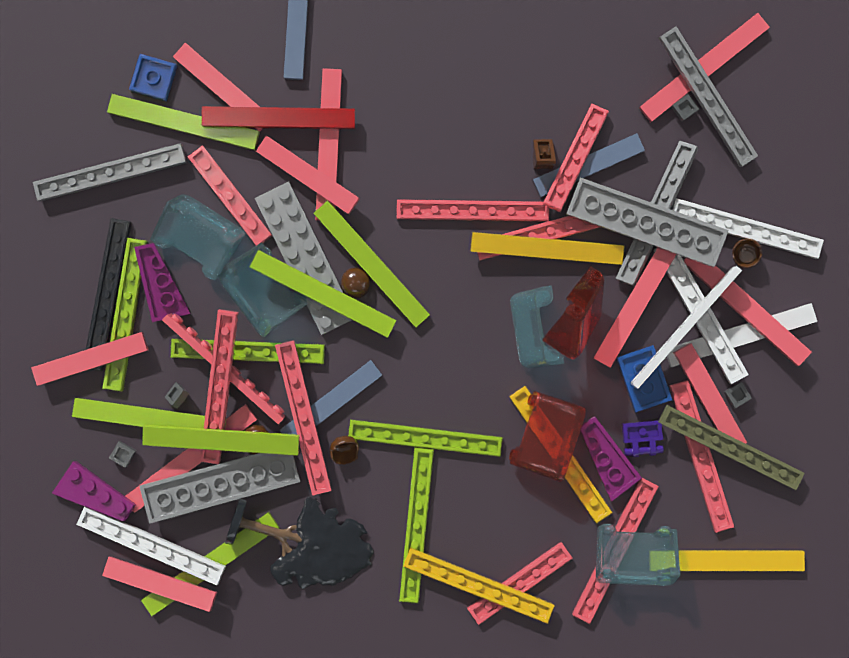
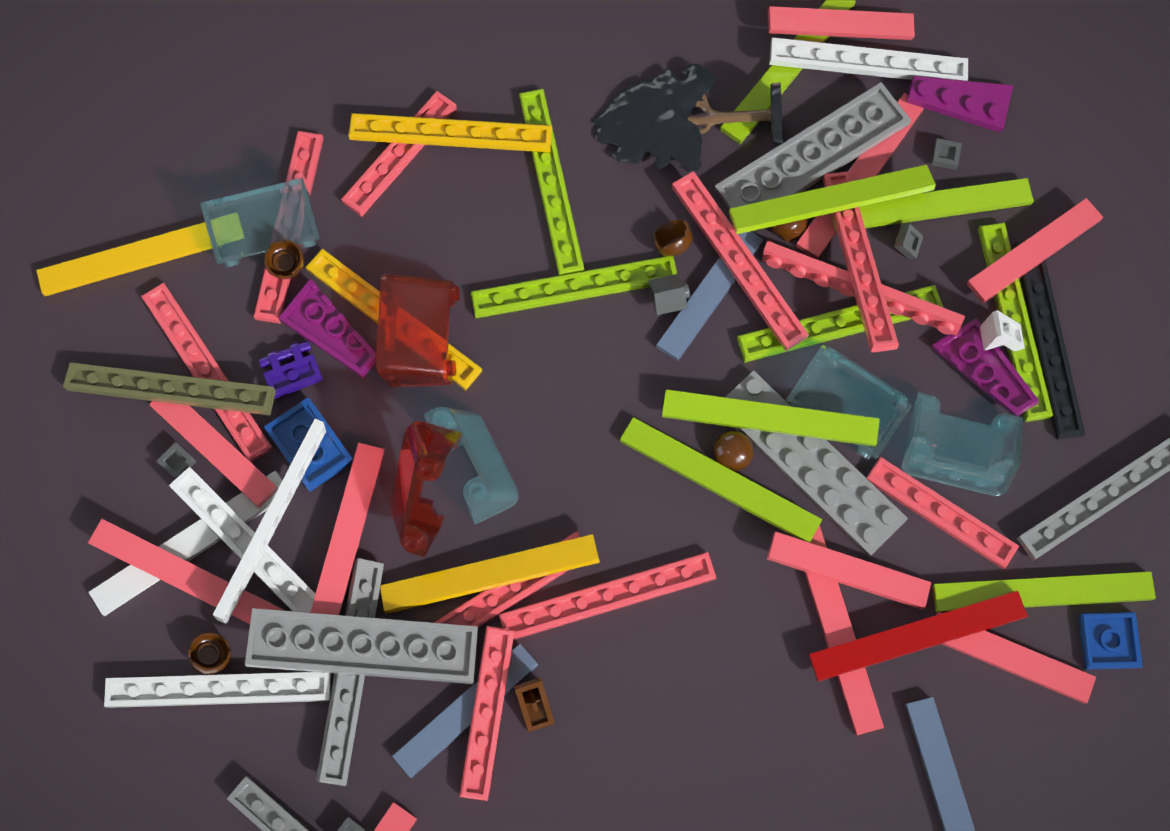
camera: 160 degrees right, 15 degrees down
(139, 302) = (1000, 331): none -> white slope
(361, 408) = (668, 294): none -> dark grey brick
(627, 519) = (284, 259): none -> reddish brown hair

